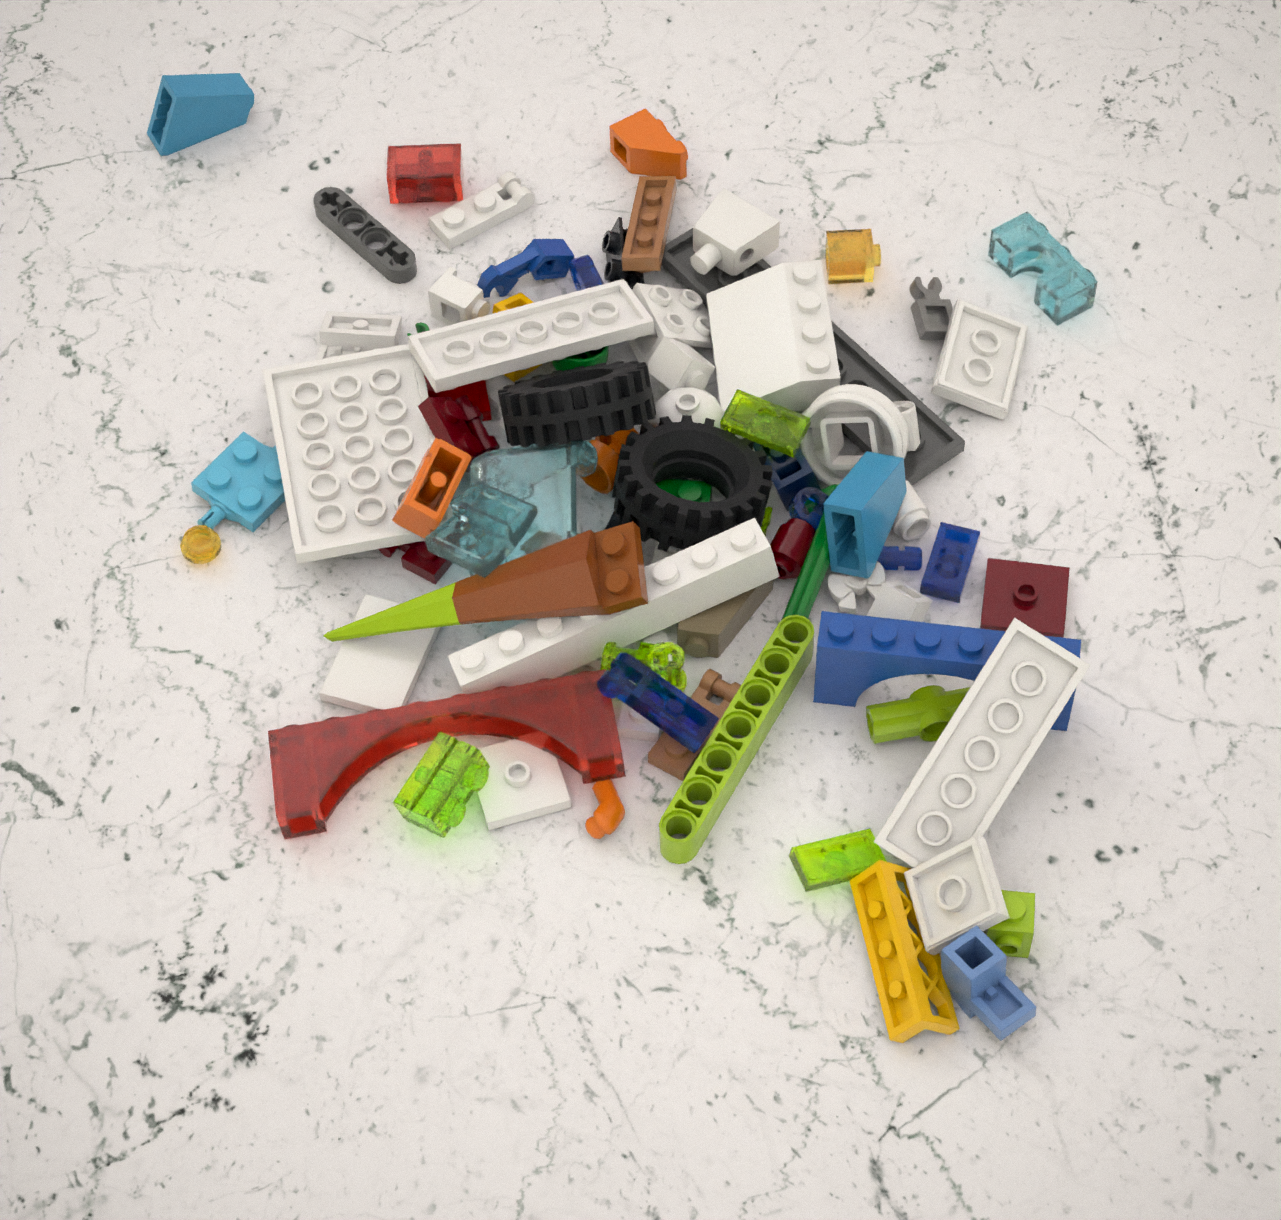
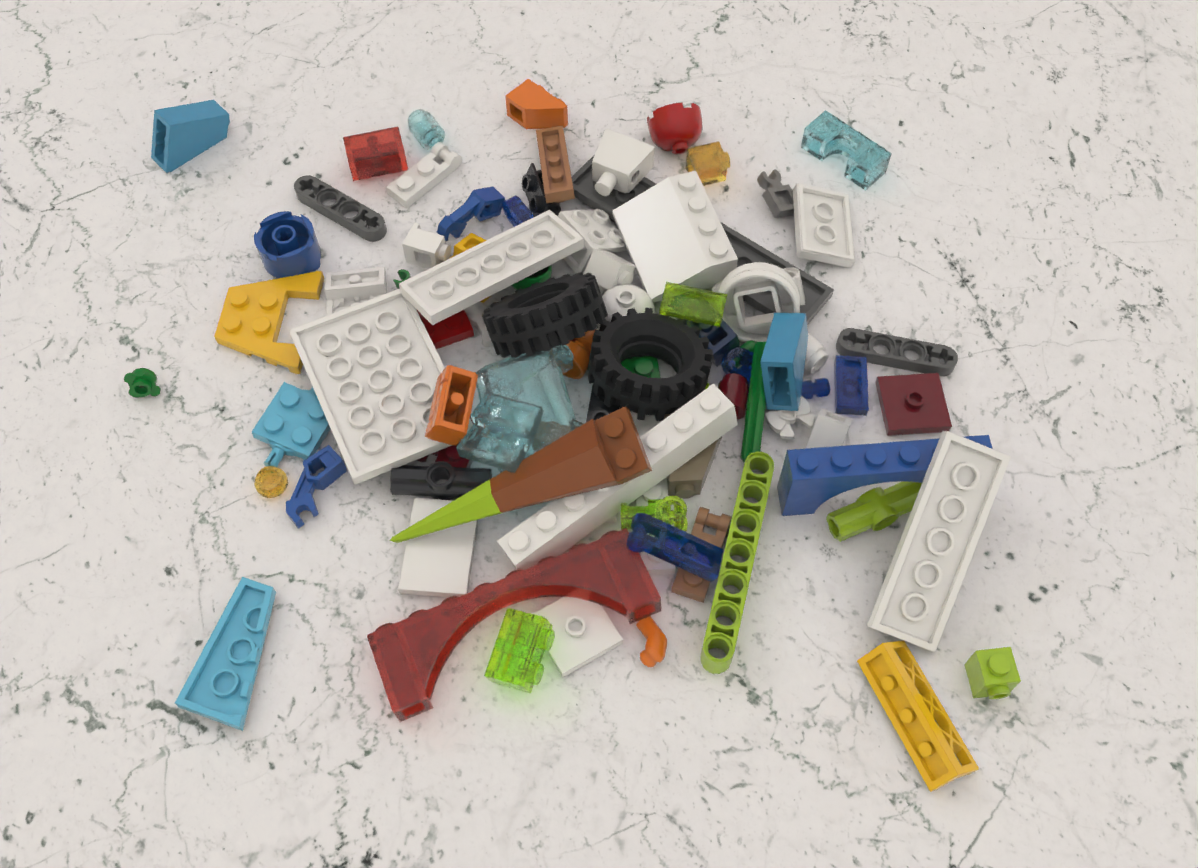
camera: 15 degrees left, 5 degrees up
(78, 396) = (142, 383): none -> green plate
(106, 732) = (228, 665): none -> medium azure wing
(230, 345) = (255, 315): none -> yellow wing
(259, 546) = (302, 496): none -> blue piece
(287, 270) = (287, 245): none -> blue brick
(385, 576) = (422, 480): none -> black piece
(458, 424) = (454, 348): dark red plate -> none
(497, 152) = (425, 128): none -> clear light blue brick
(821, 202) = (675, 127): none -> red cylinder
(835, 859) = (844, 646): clear neon green plate -> none
(956, 893) = (951, 661): white plate -> none
(978, 982) = (987, 730): medium blue brick -> none
(1026, 529) = (896, 347): none -> dark grey beam

